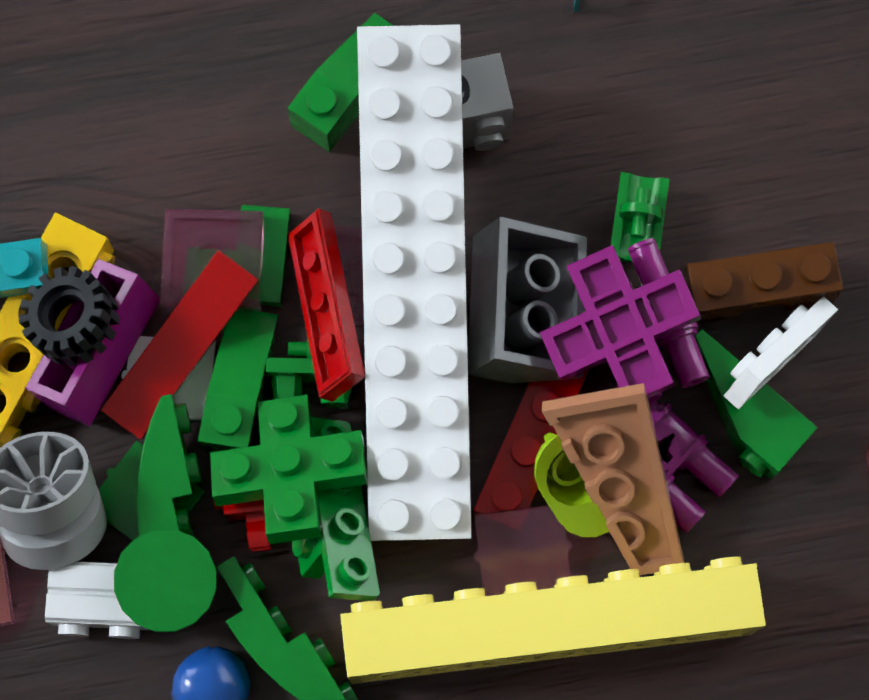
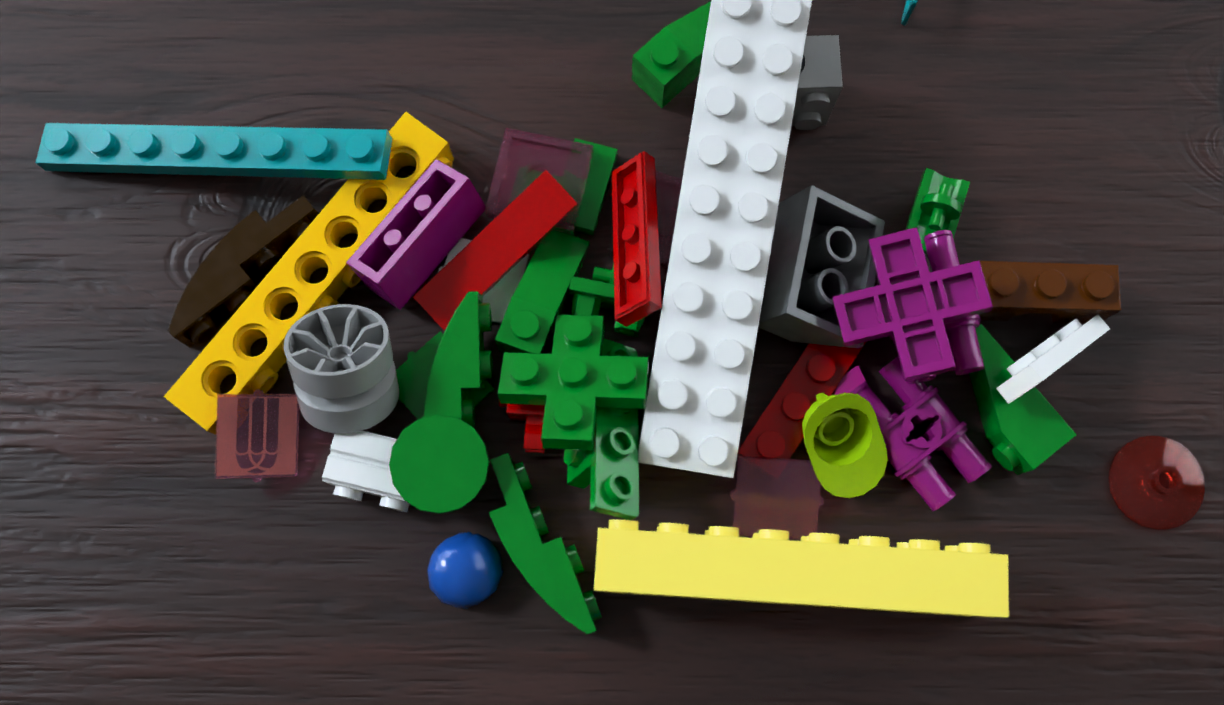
camera: 10 degrees right, 0 degrees up
(86, 332) = (387, 185): black tyre -> none
(620, 461) = (888, 435): nougat wing -> none

